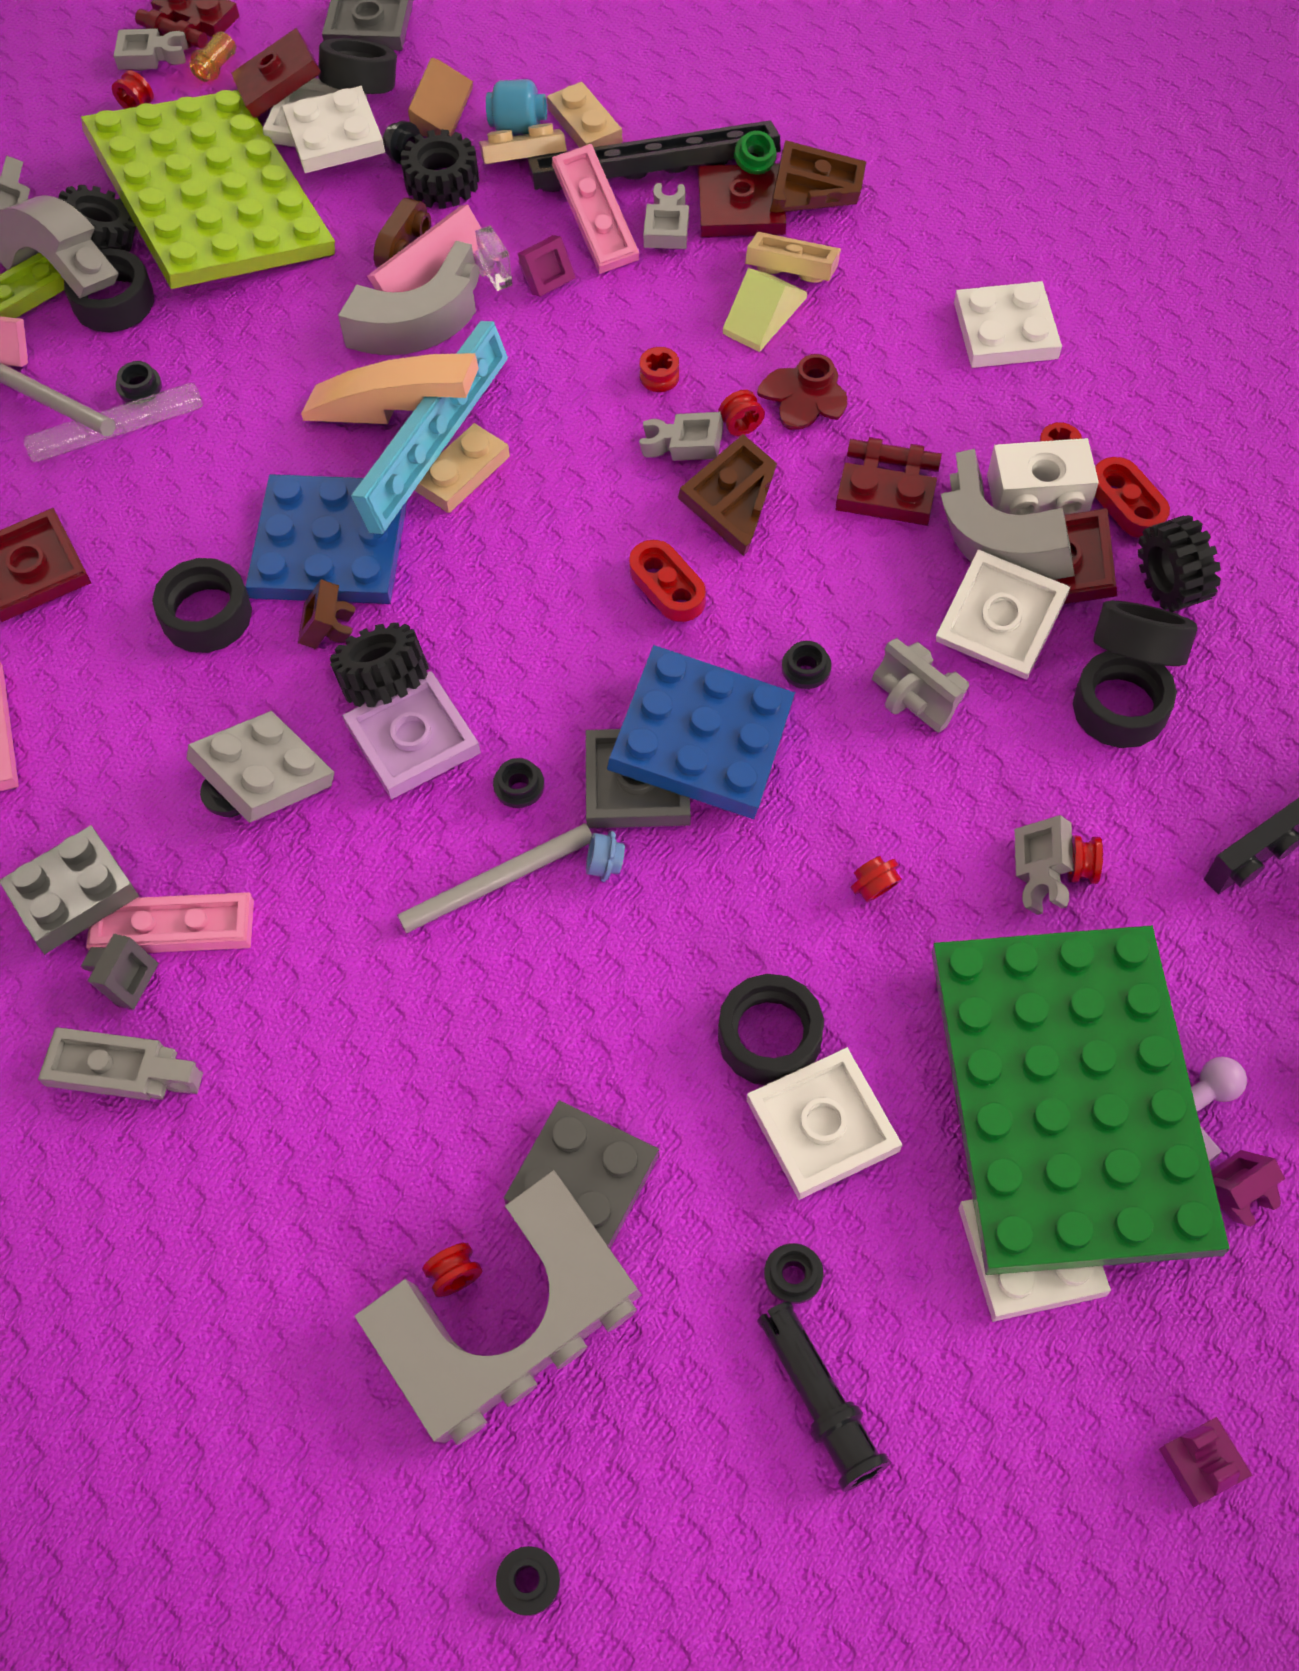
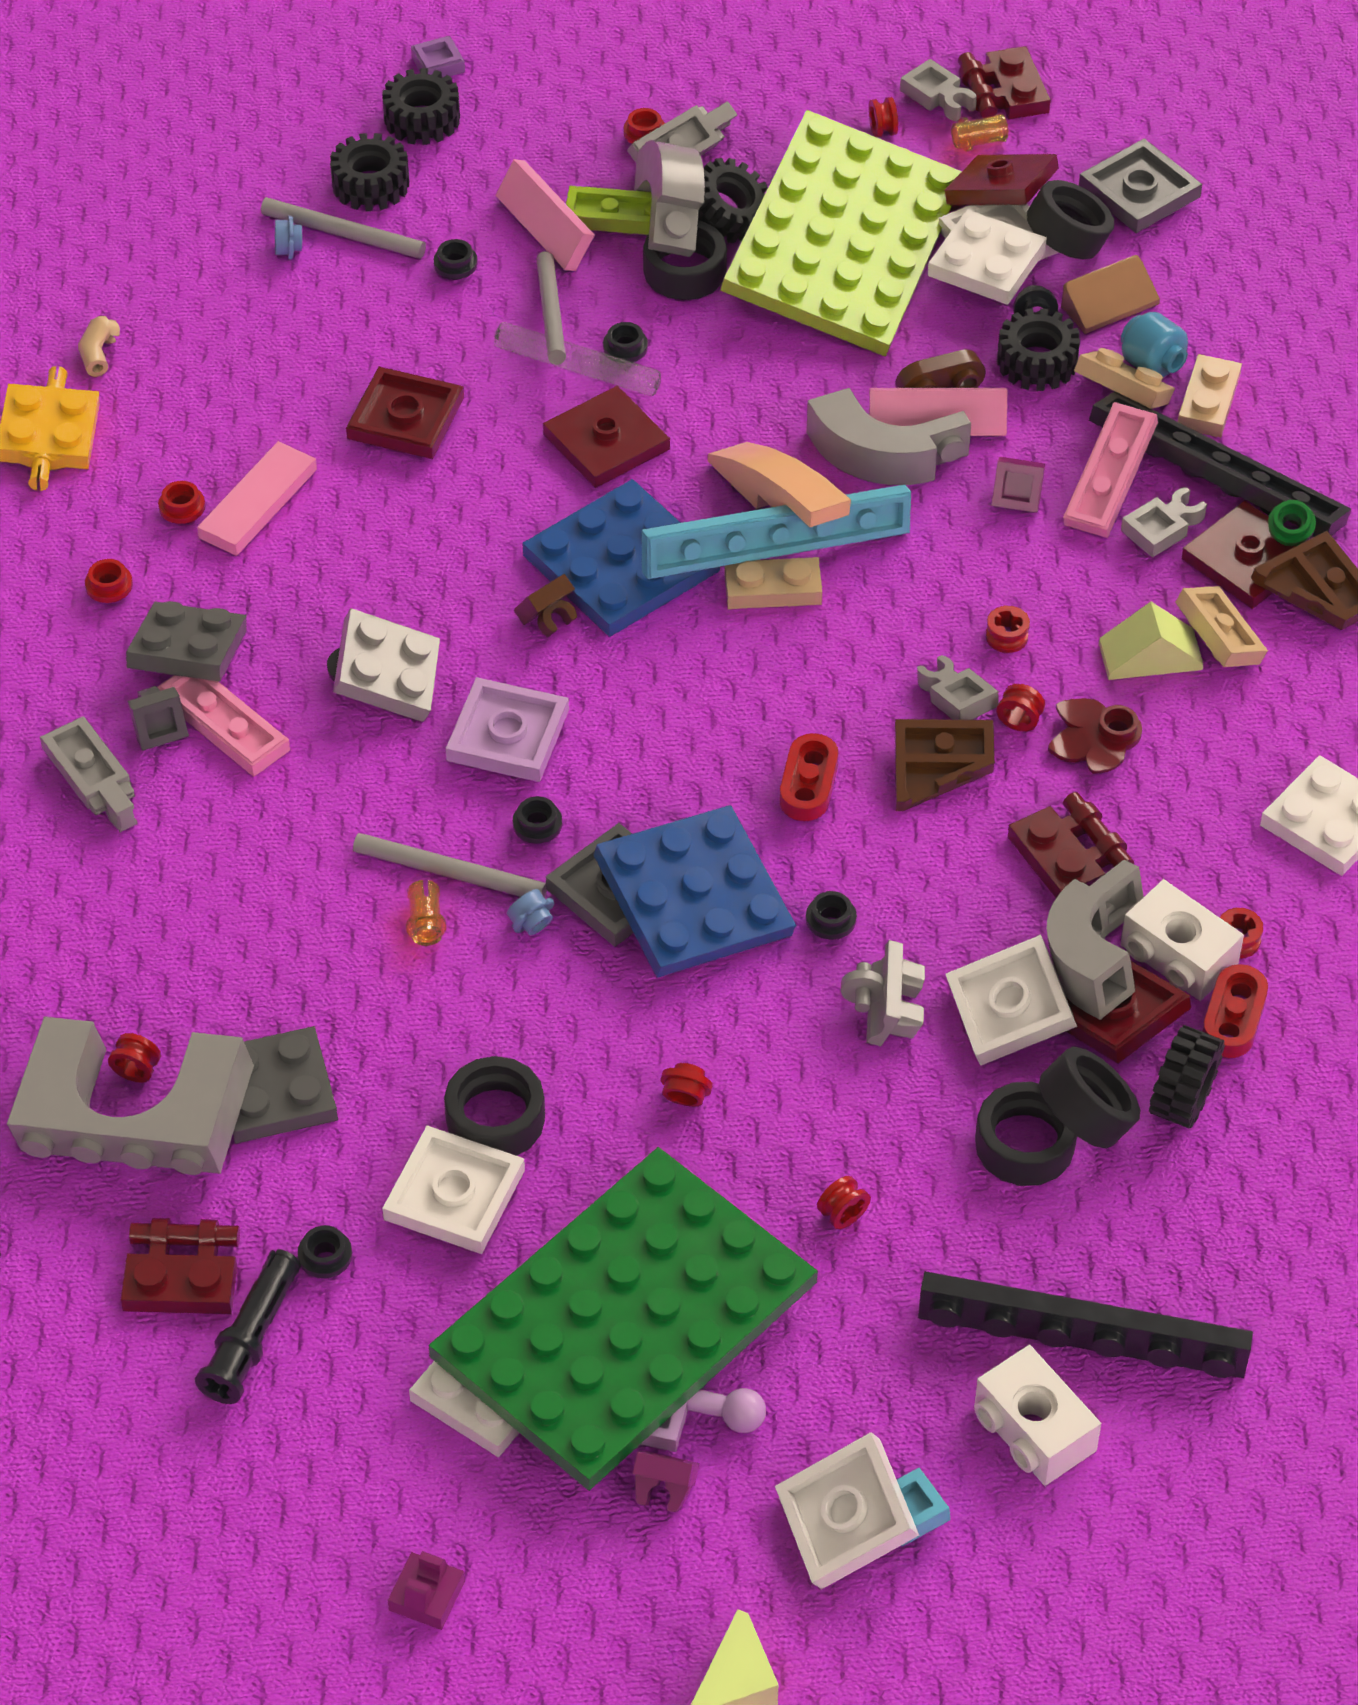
camera: 45 degrees right, 10 degrees down
(193, 577) = (475, 506): black tyre -> none
(206, 461) = (606, 436): none -> dark red plate
(379, 664) = (537, 663): black tyre -> none
(492, 258) = (985, 447): clear plate -> none
(536, 935) = (425, 921): none -> pin
(717, 1415) = (180, 1282): none -> dark red plate
(1041, 855) = (810, 1178): light grey plate -> none

